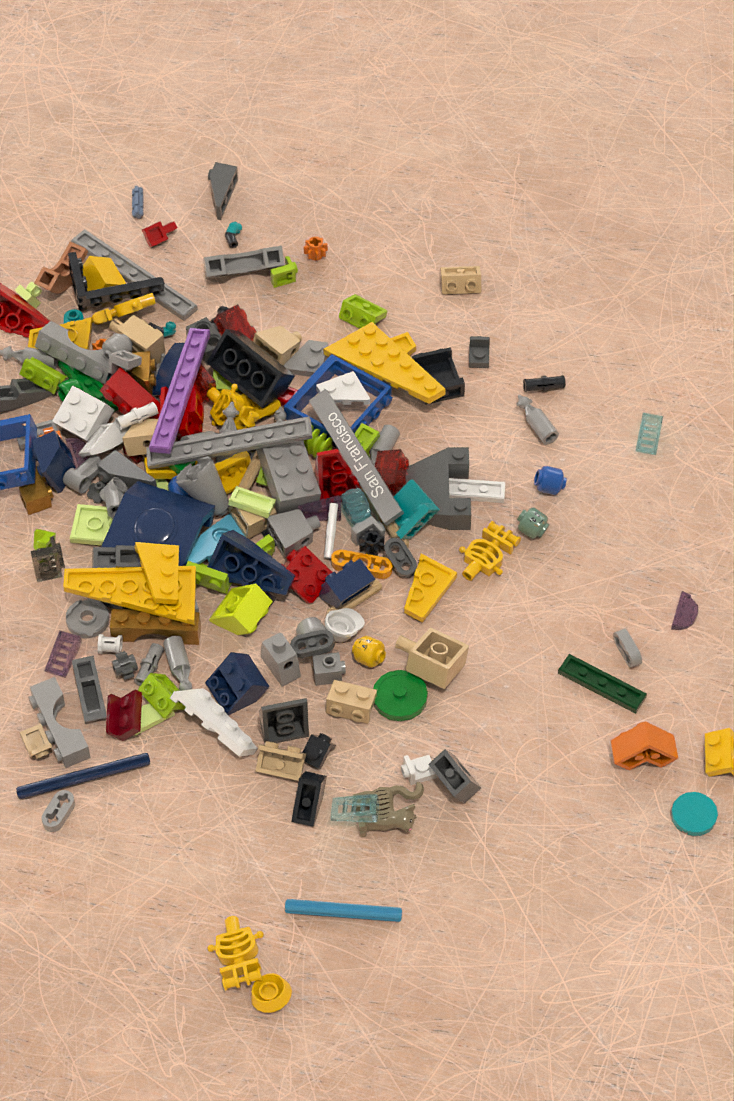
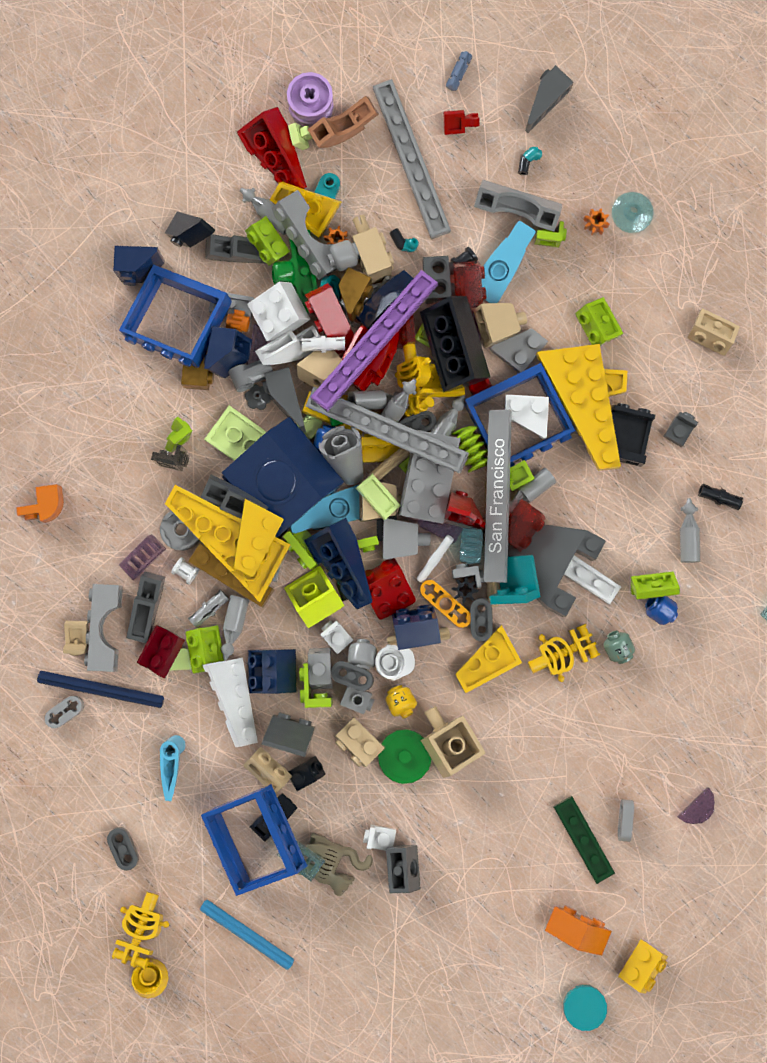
camera: 25 degrees right, 30 degrees up
(21, 264) = (309, 98): none -> lavender wheel
(101, 273) = (377, 151): yellow slope -> none
(113, 494) = (263, 414): light grey piece -> none
(114, 293) = (348, 159): black bracket -> none
(123, 359) = (339, 279): light grey bracket -> none
(124, 309) = (378, 203): yellow torso -> none
(124, 665) = (186, 601): dark grey gear -> none
(182, 895) = (120, 849): none -> dark grey plate
(186, 801) = (170, 764): none -> medium azure piece
(257, 300) = (505, 261): none -> medium azure piece
(266, 792) = (279, 830): none -> blue window
(272, 627) = (336, 636): none -> white bracket
(289, 681) = (319, 699): none -> lime bracket
(341, 233) = (630, 221): none -> clear light blue dish
(527, 467) = (654, 585): none -> lime bracket

